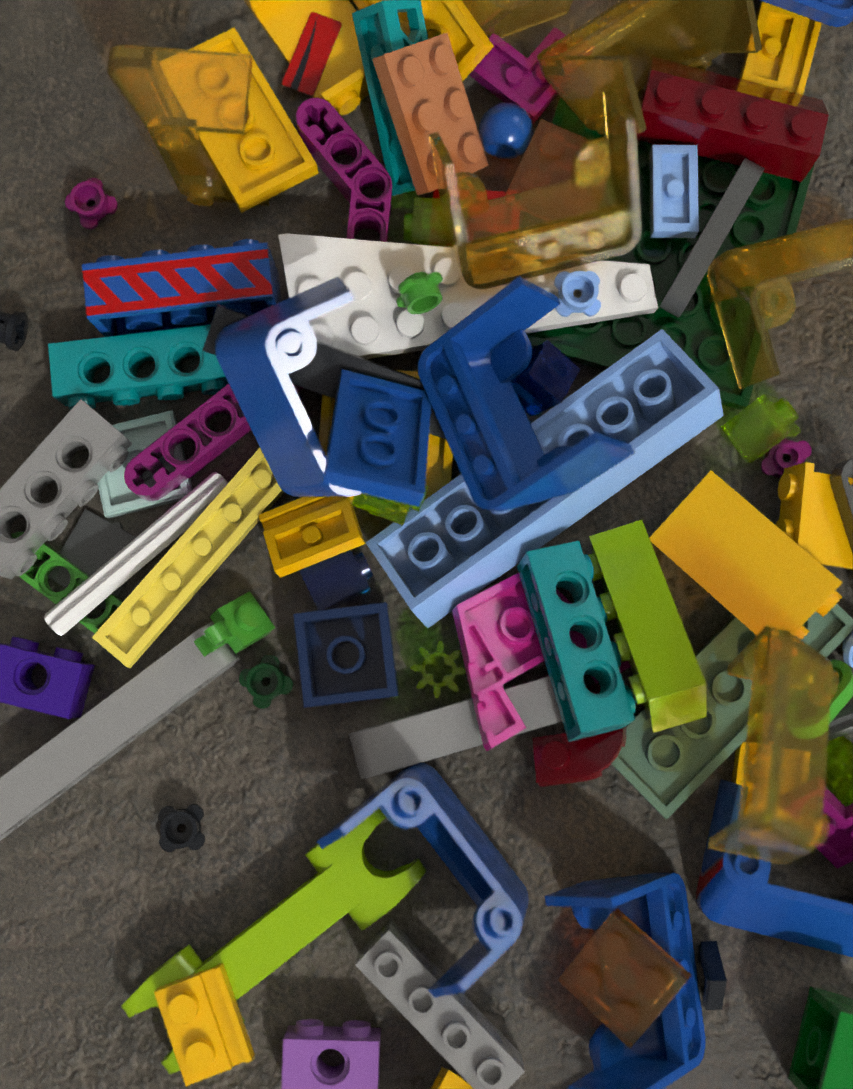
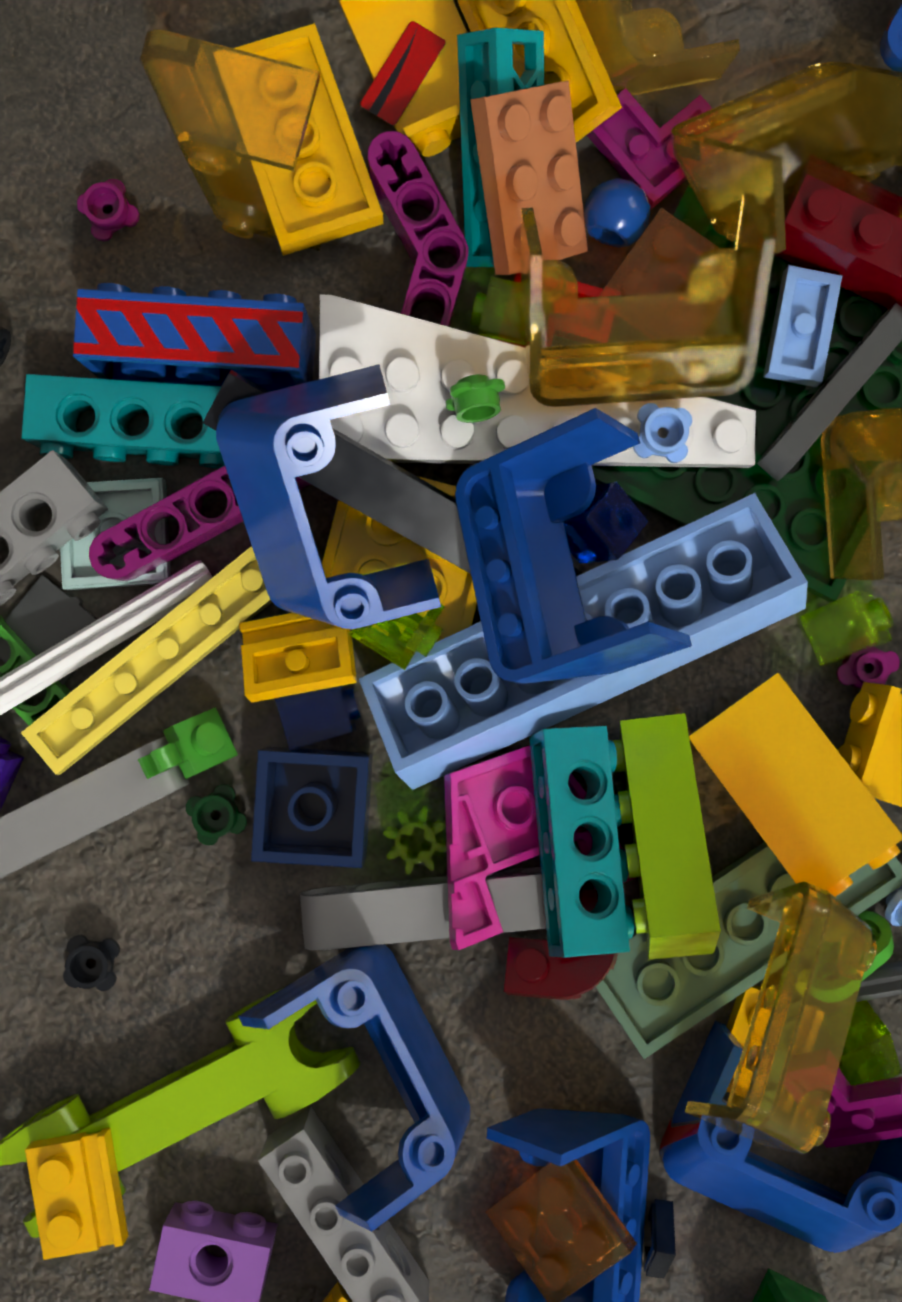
camera: 10 degrees right, 5 degrees up
(378, 439) = (392, 570): blue plate -> none

